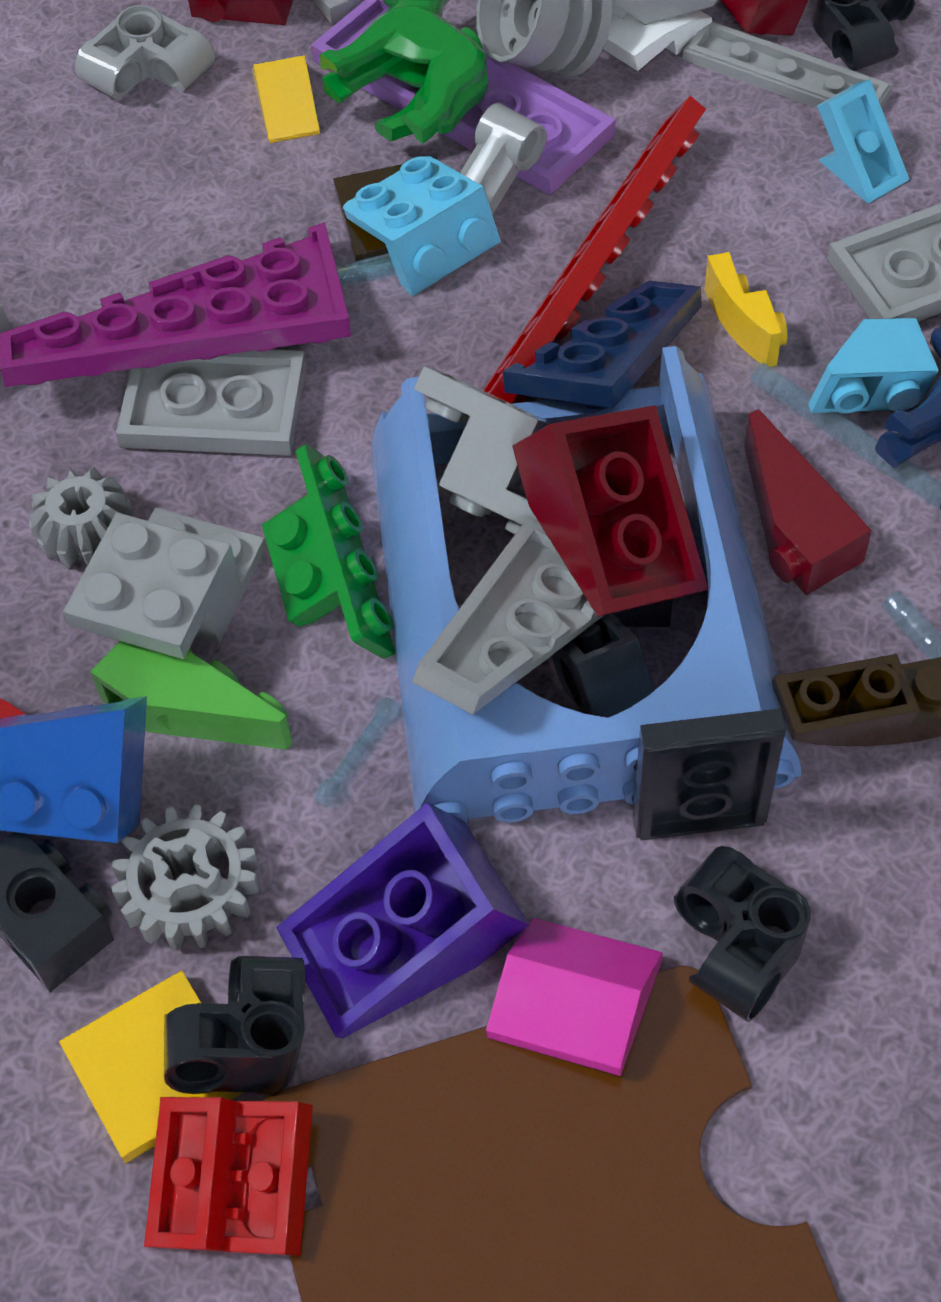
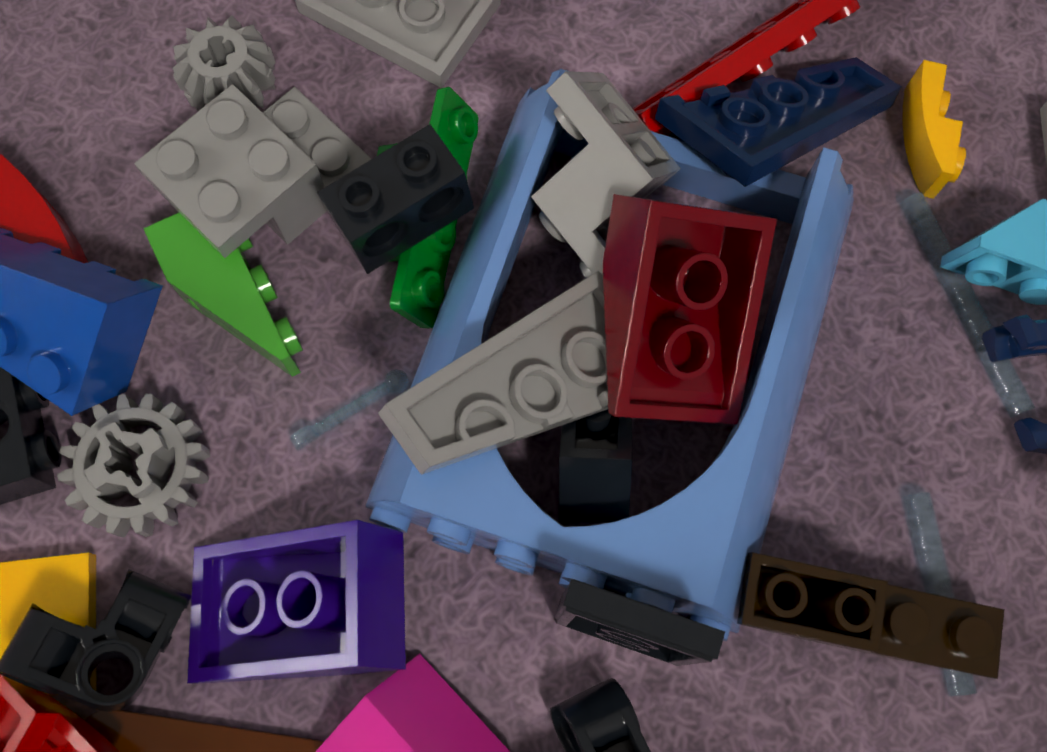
camera: 20 degrees right, 15 degrees up
(319, 542) = (398, 198): none -> black brick
(804, 520) = (875, 374): dark red slope -> none

